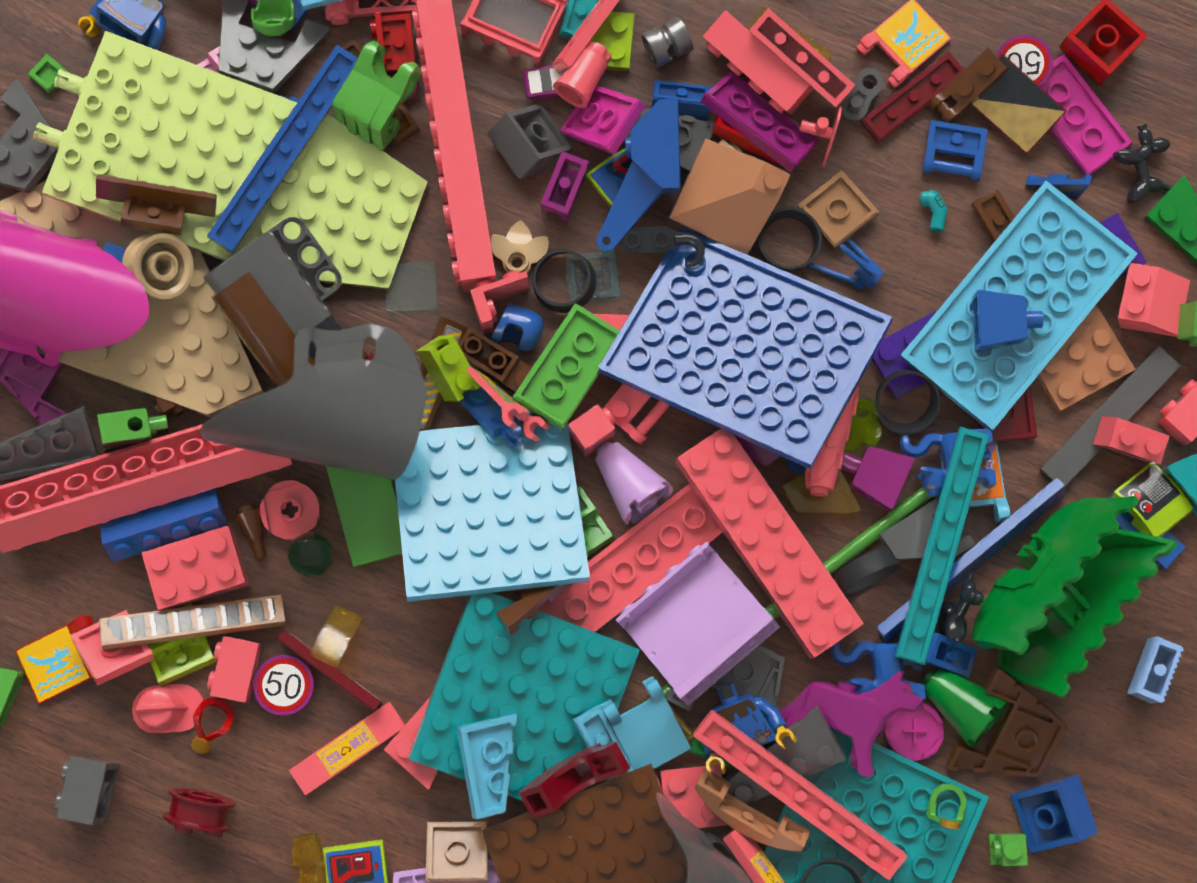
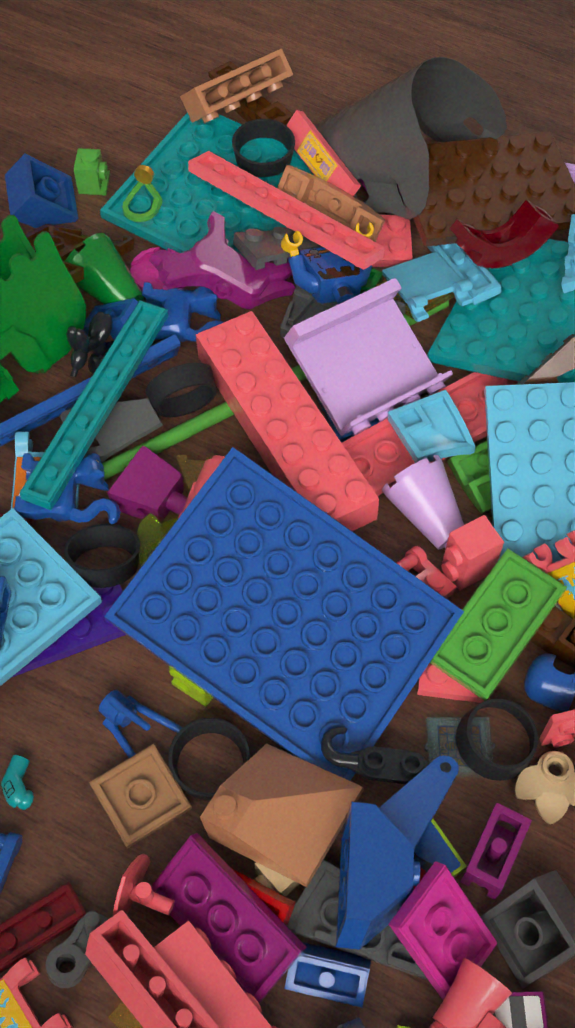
camera: 170 degrees left, 20 degrees down
(632, 554) = (432, 428): none -> medium azure plate

